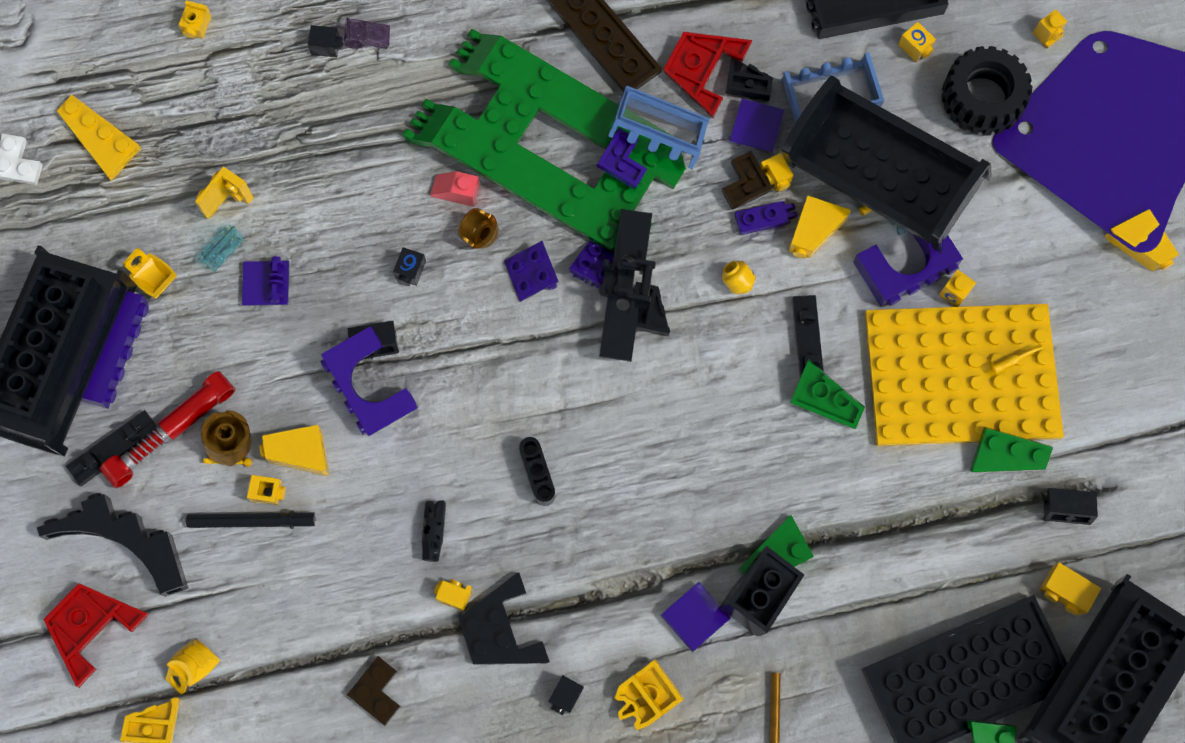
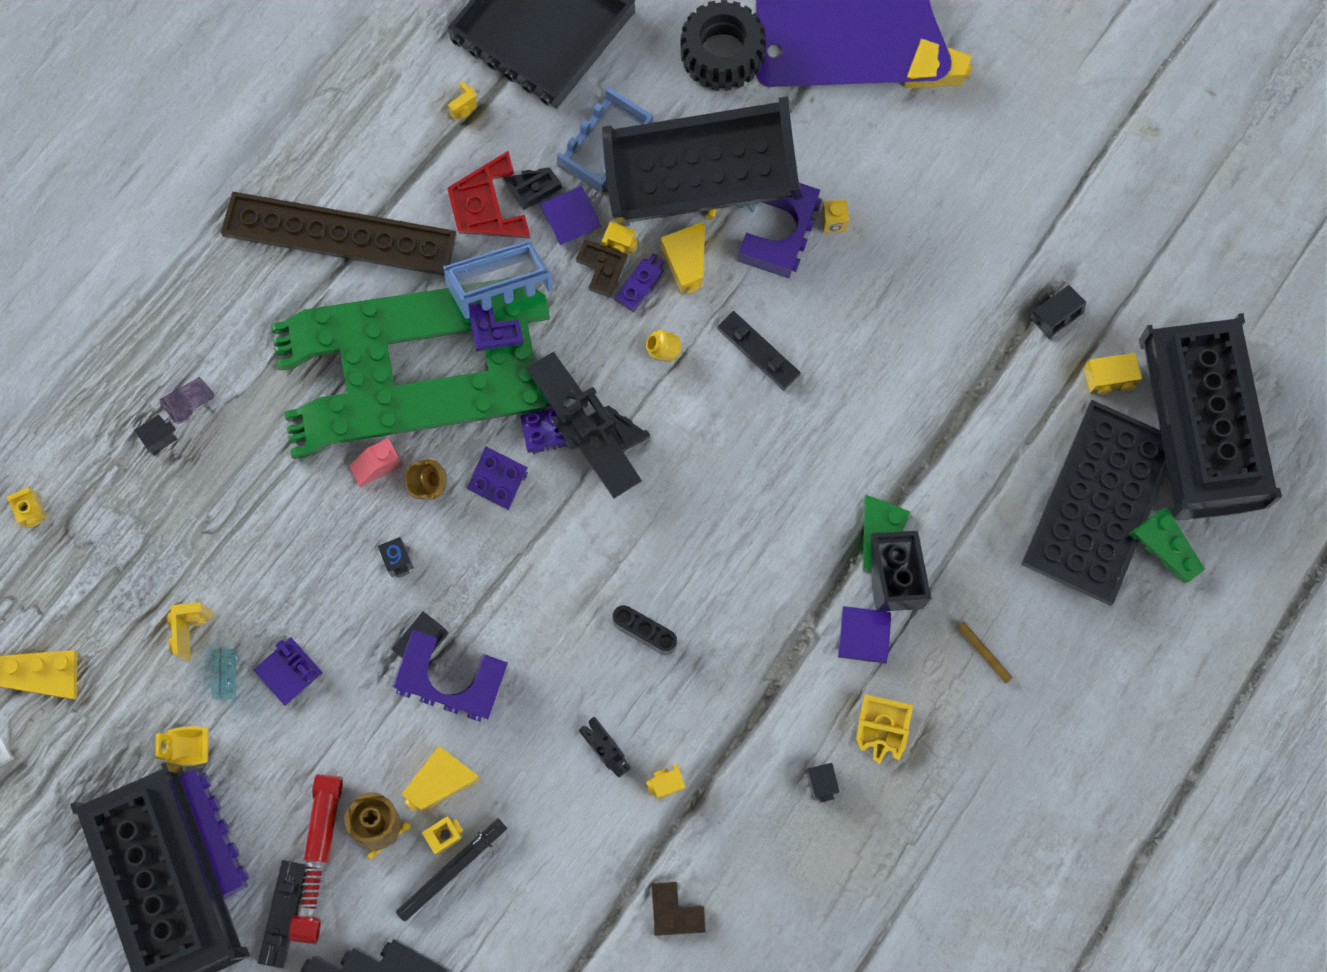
camera: 40 degrees left, 0 degrees up
(490, 633) = (722, 787): black wing -> none
(826, 397) = (812, 382): green wing -> none
(917, 42) = (636, 50): yellow brick -> none
(937, 377) = (894, 279): yellow plate -> none
(1009, 453) = (980, 309): green wing -> none
(1012, 360) = (923, 236): yellow piece -> none

